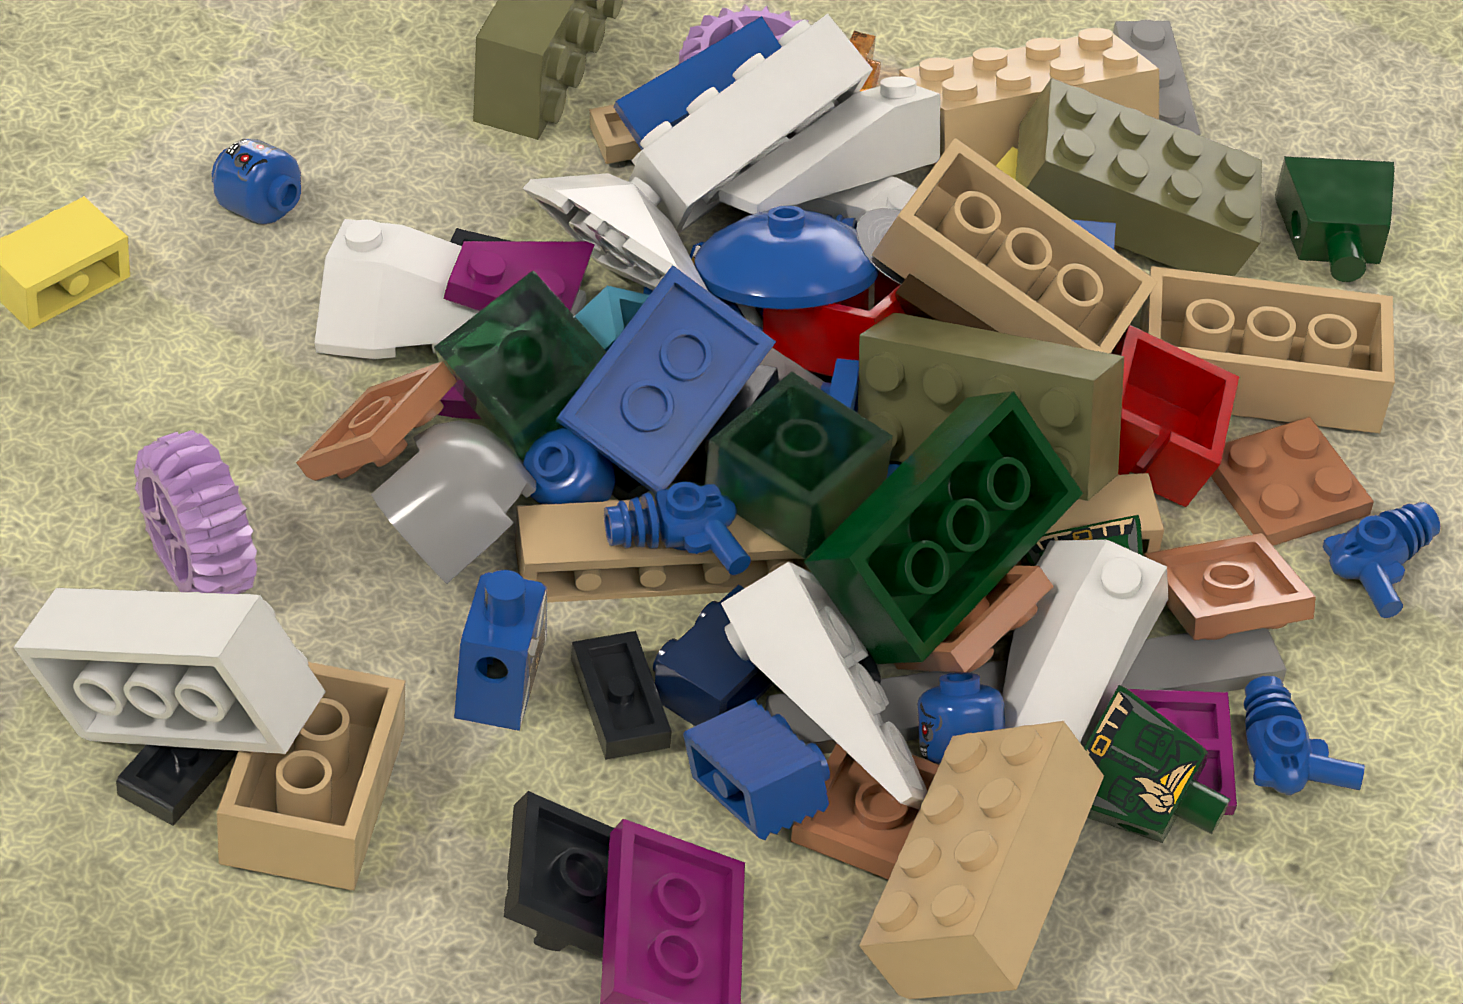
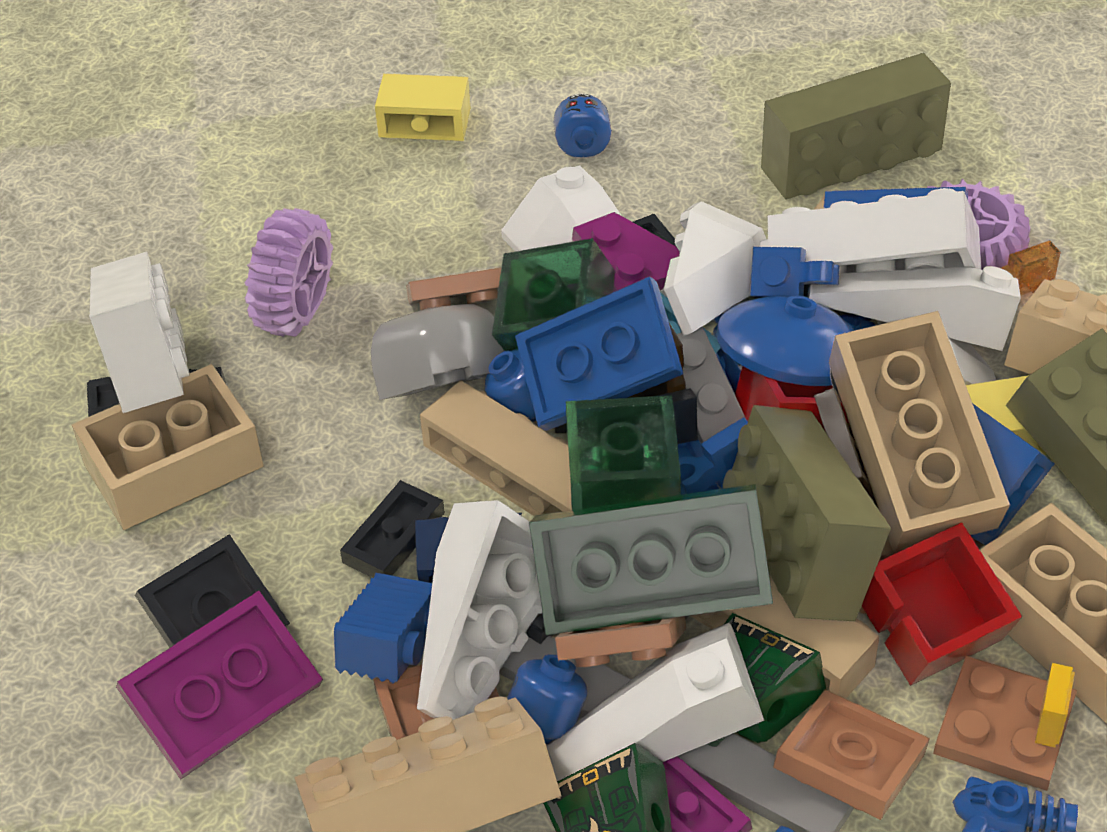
camera: 55 degrees right, 0 degrees up
(506, 624) = (350, 452): blue torso -> none
(684, 519) = (520, 444): blue piece -> none
(713, 199) = (784, 272): none -> blue plate
(1334, 432) = (1055, 705): none -> yellow tile

